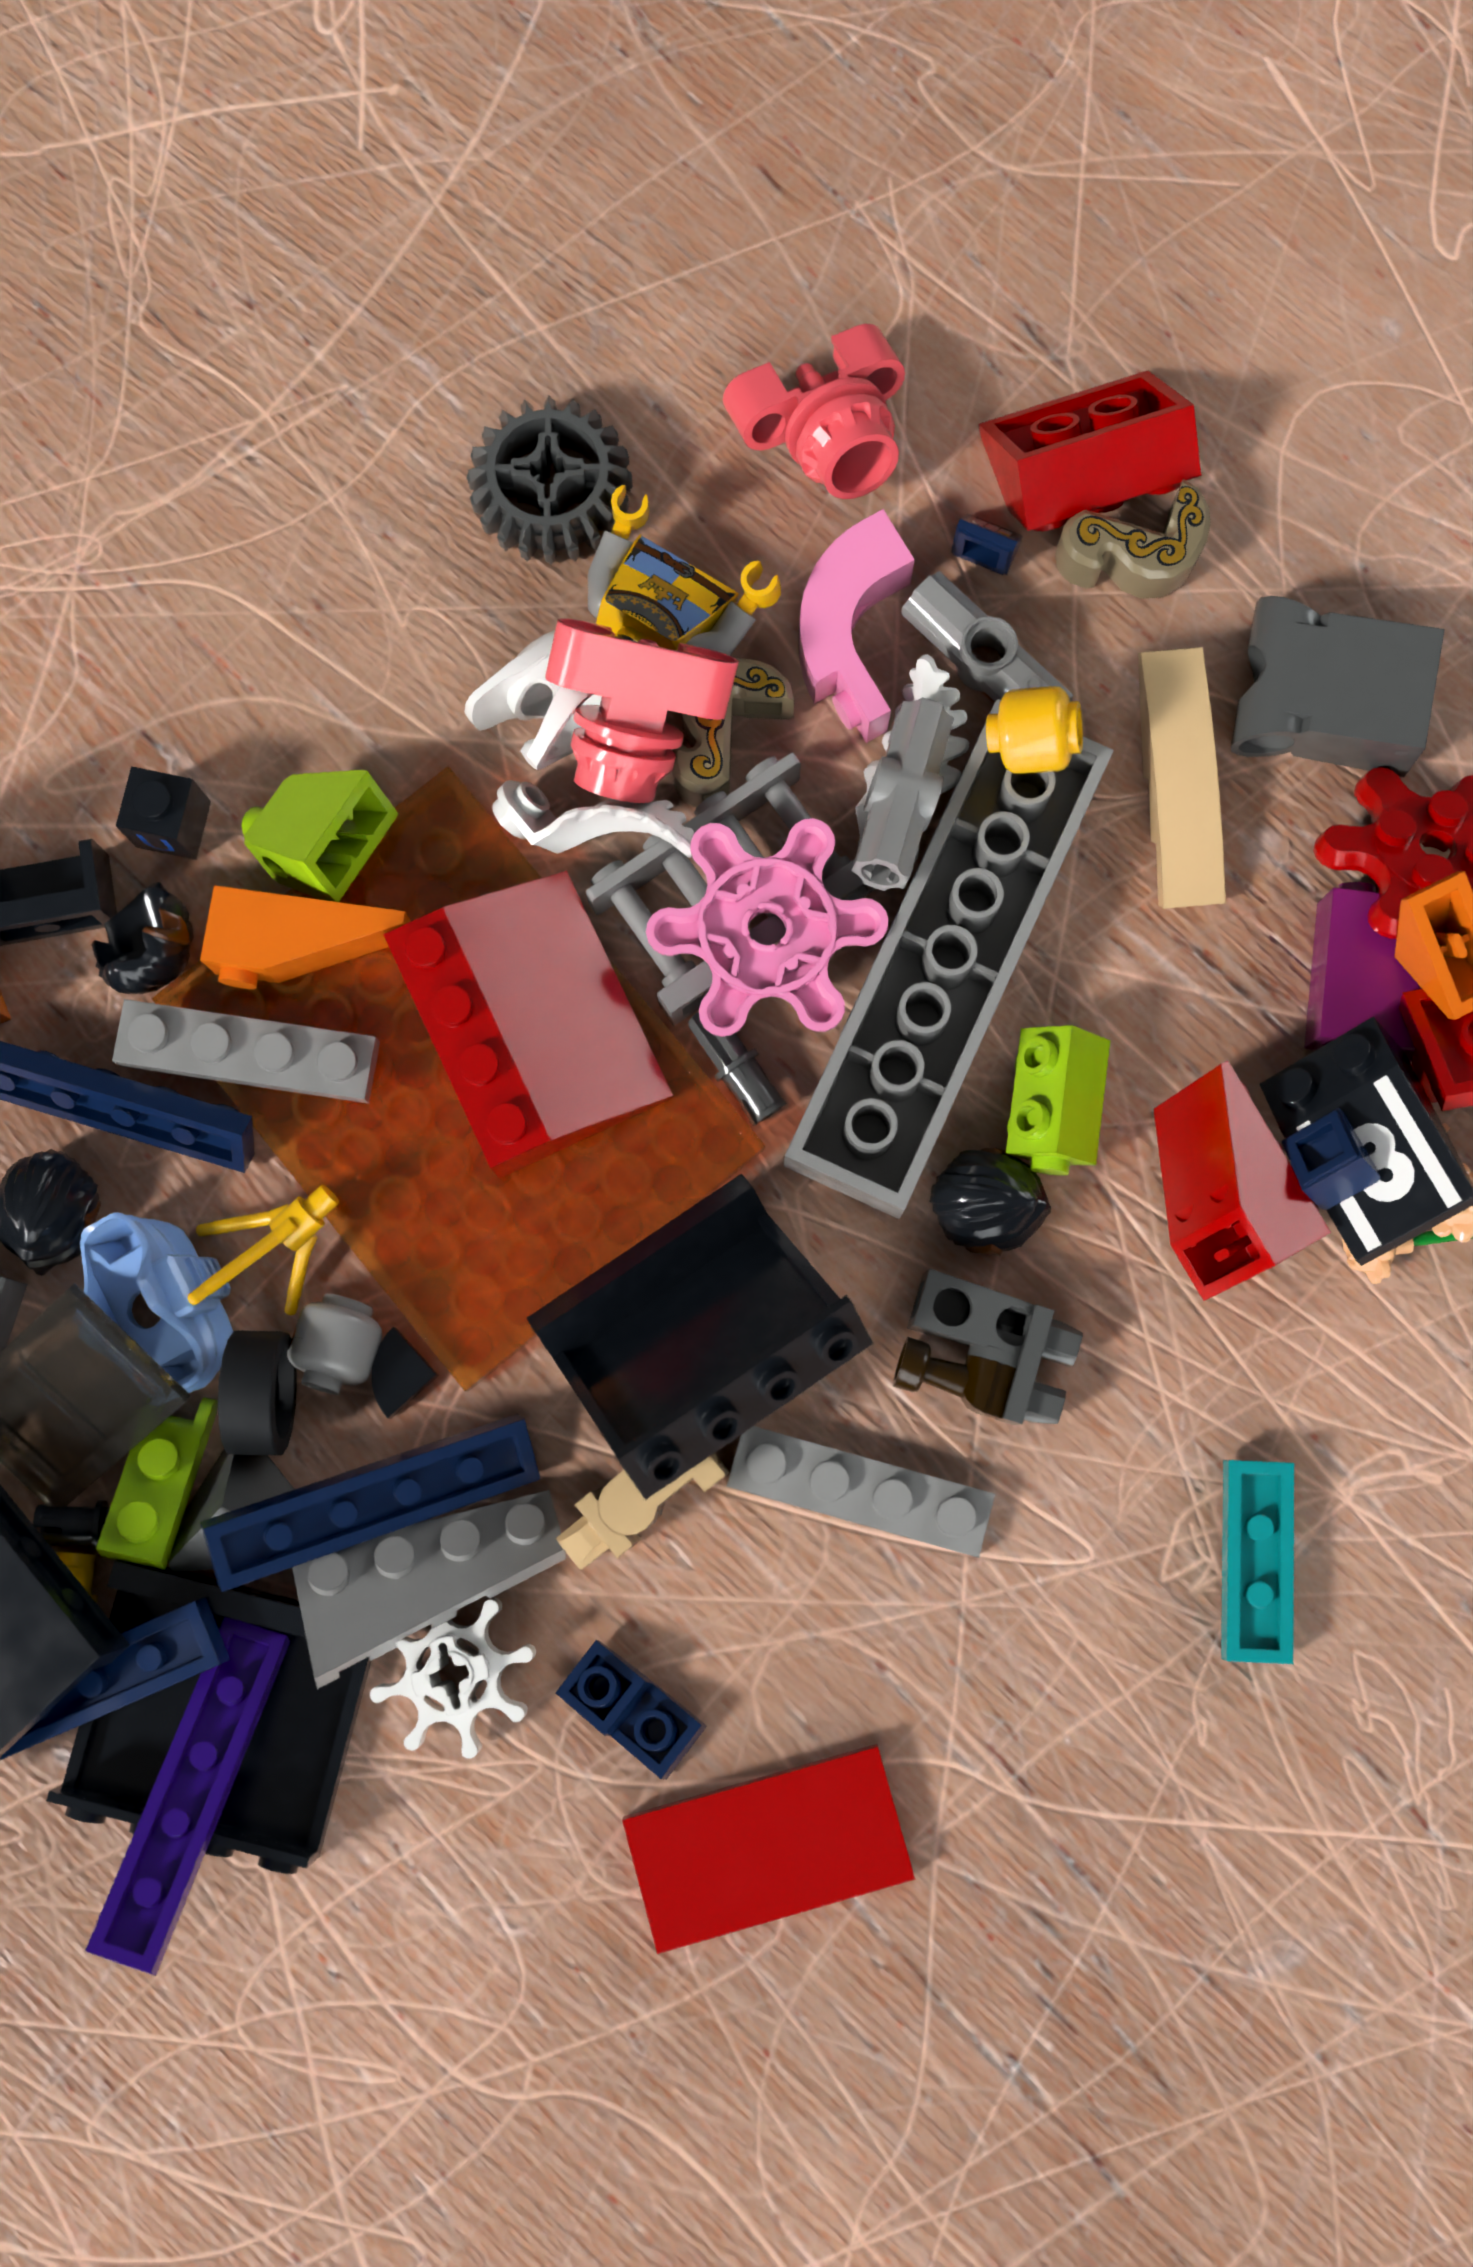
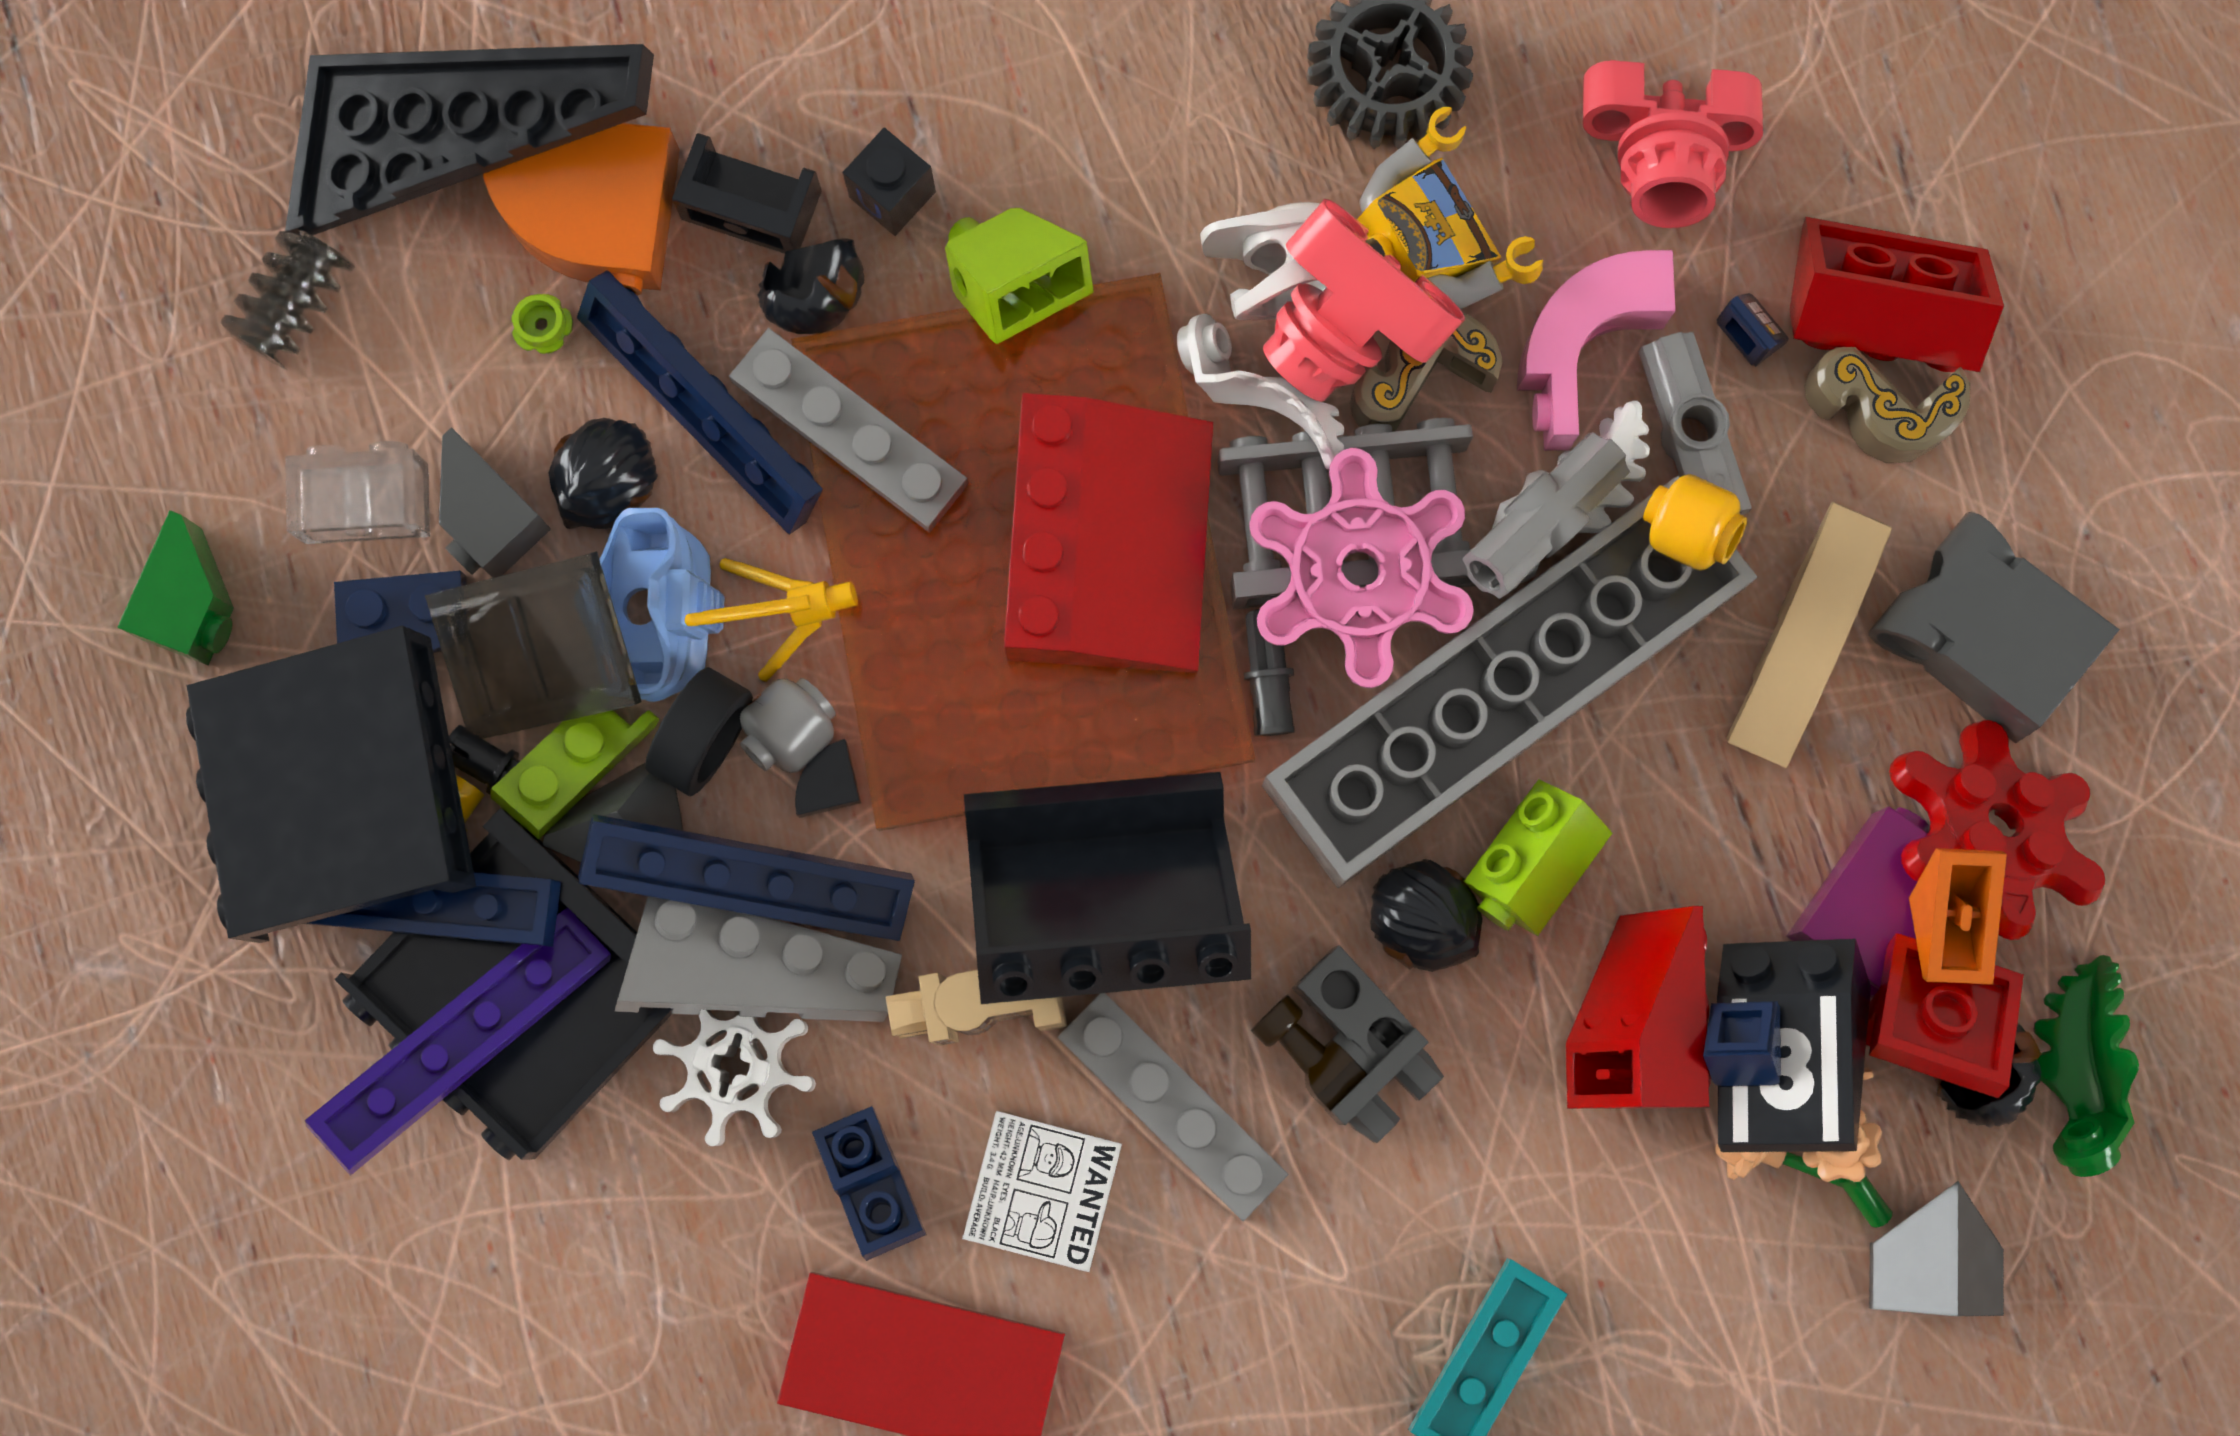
camera: 25 degrees right, 0 degrees up
(286, 936) = (938, 348): orange slope -> none
(788, 1630) = (1042, 1191): none -> white tile

